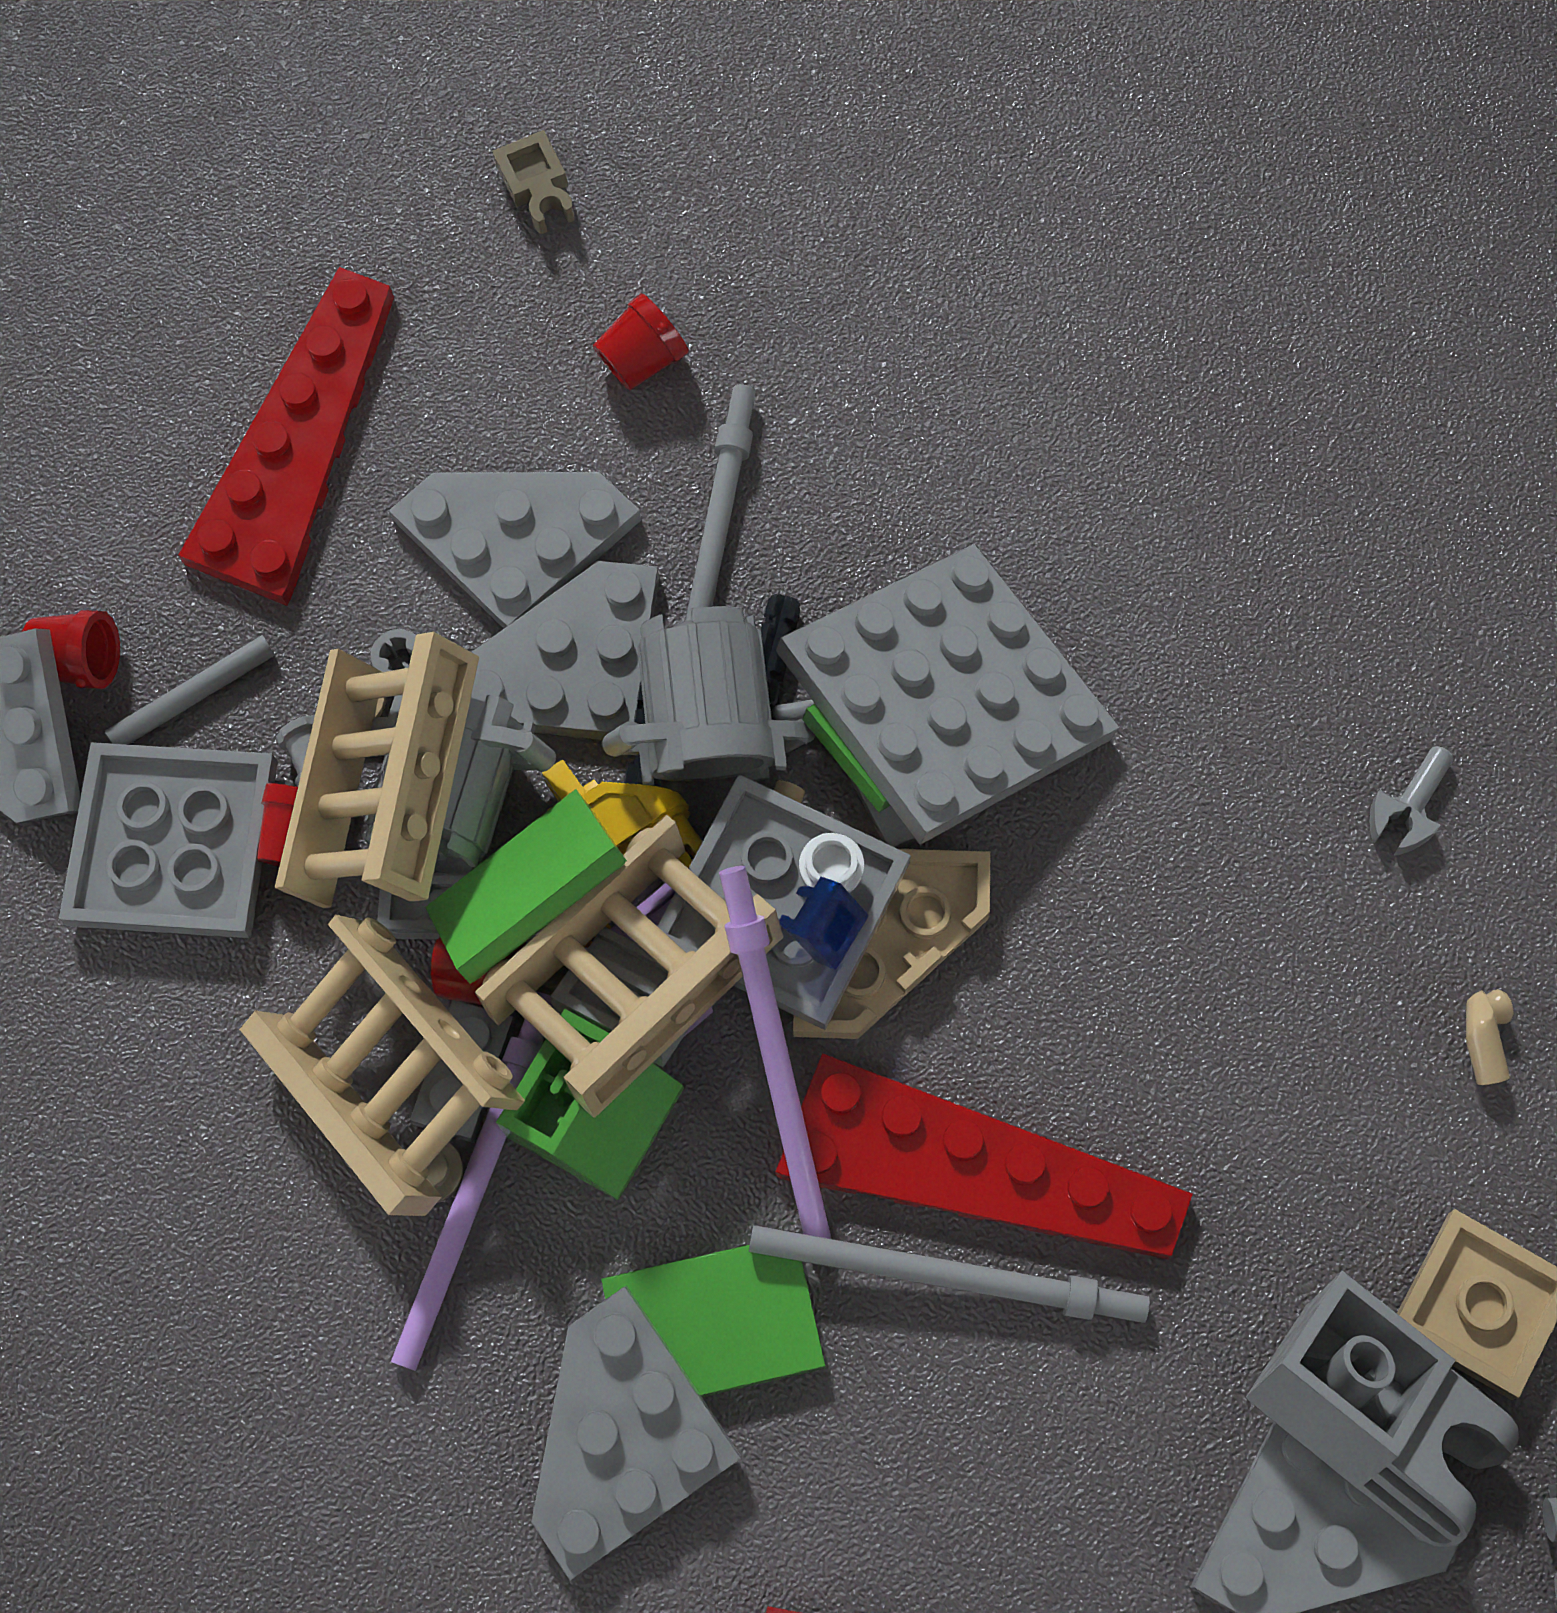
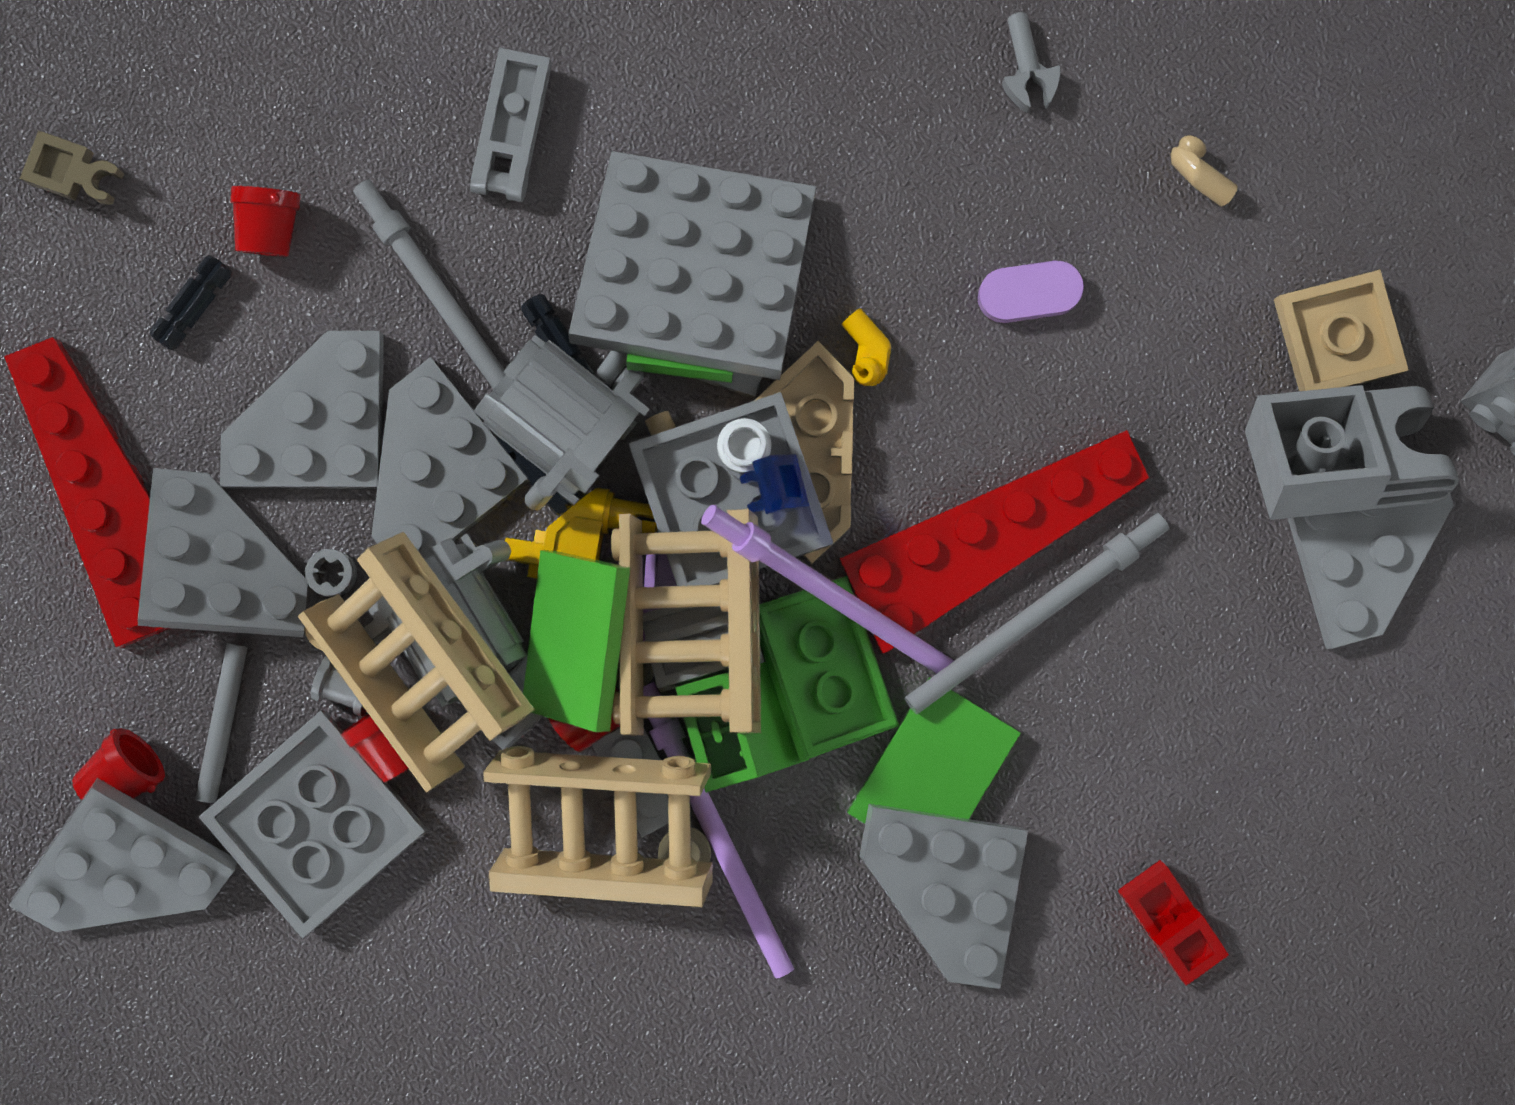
camera: 50 degrees left, 15 degrees up
(316, 559) = (213, 564): none -> light grey plate
(519, 356) = (190, 302): none -> black axle
(705, 1135) = (823, 673): none -> bright green tile
(913, 450) = (511, 123): none -> light grey plate
(1033, 908) = (873, 349): none -> yellow arm
(1224, 992) = (1030, 291): none -> lavender tile

